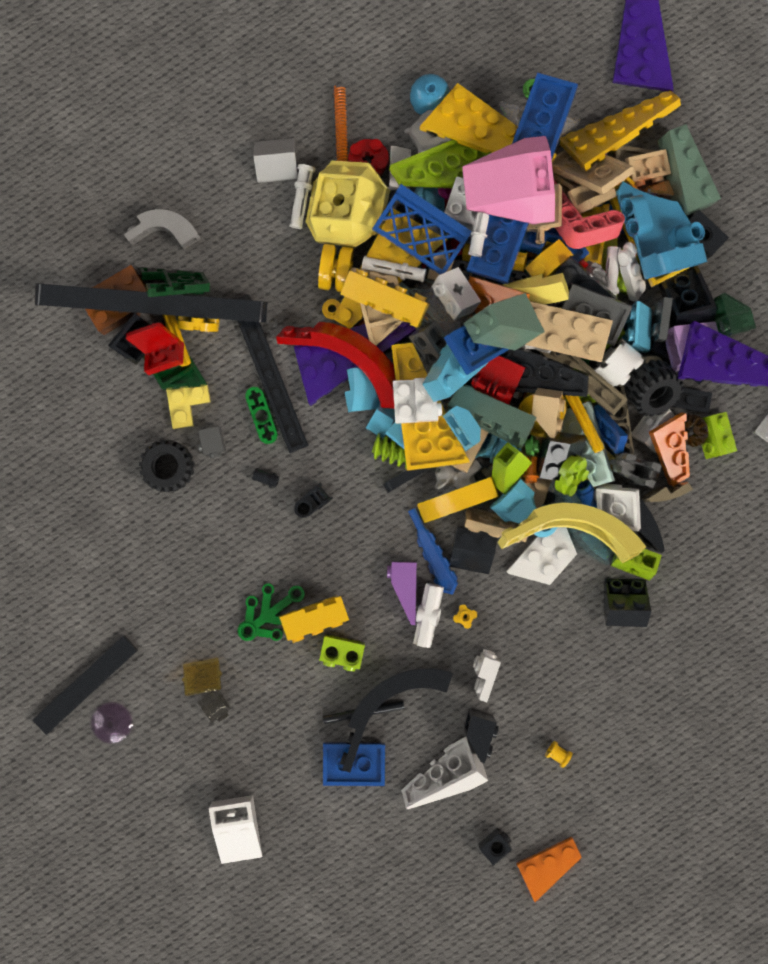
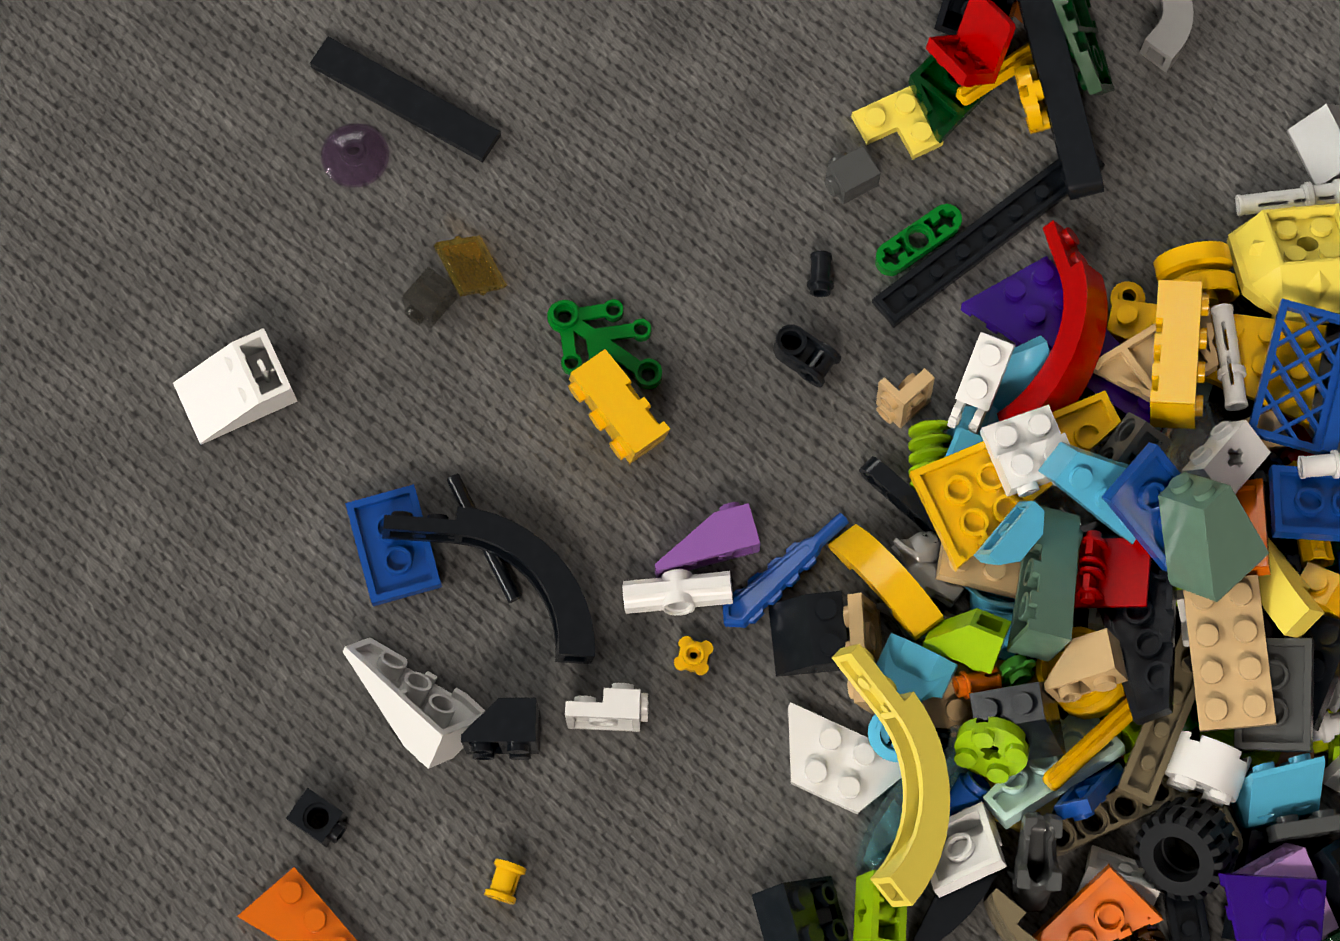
camera: 75 degrees right, 15 degrees down
(149, 463) = (796, 93): black tyre -> none
(343, 647) = (581, 471): lime brick -> none
(356, 452) = (904, 404): none -> tan bracket
(362, 411) = (981, 379): none -> white hinge

